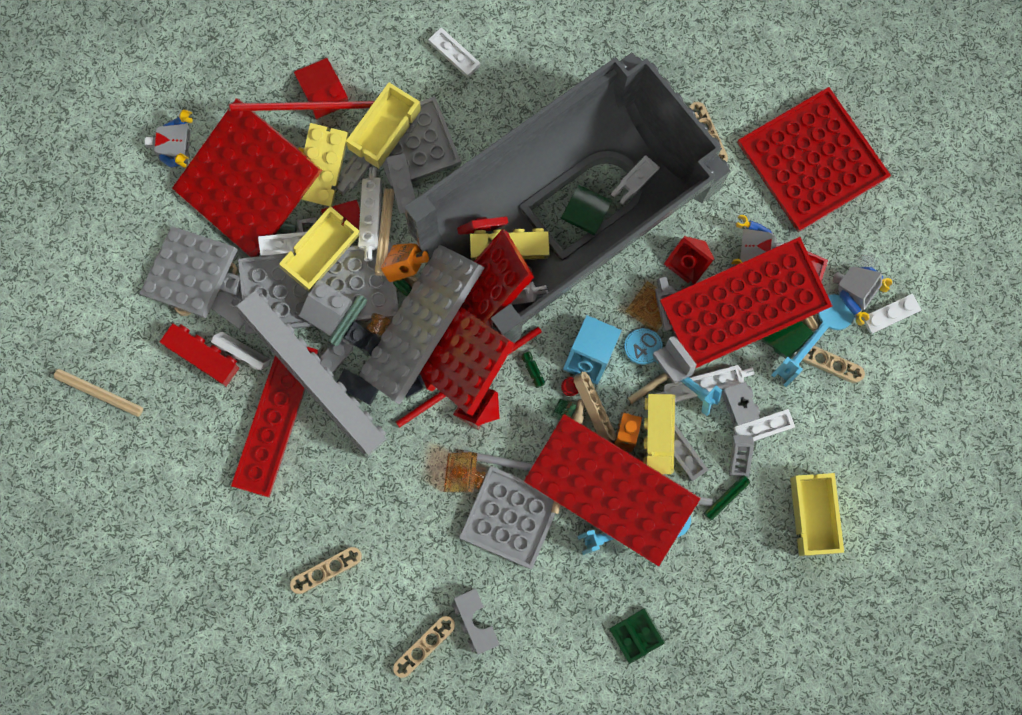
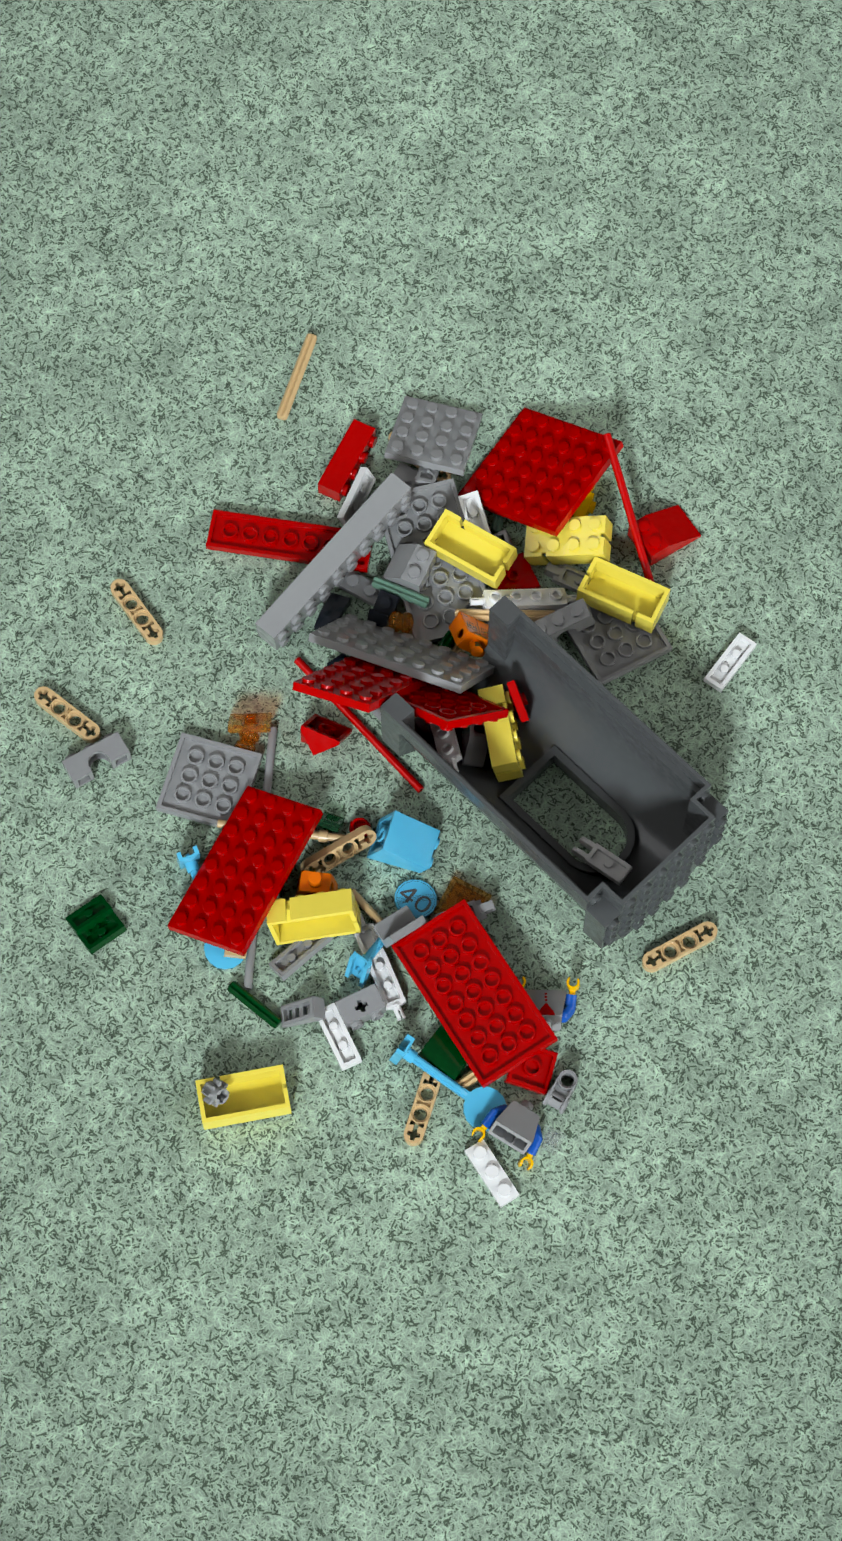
camera: 90 degrees right, 10 degrees down
(172, 141) = (574, 399): torso -> none
(533, 369) = (374, 787): dark green axle -> none
(586, 210) = (558, 812): dark green slope -> none
(690, 259) = (523, 936): red slope -> none
(813, 159) = (669, 1069): red plate -> none
(819, 537) = (215, 1092): none -> light grey gear
(829, 246) = (560, 1095): none -> light grey piece

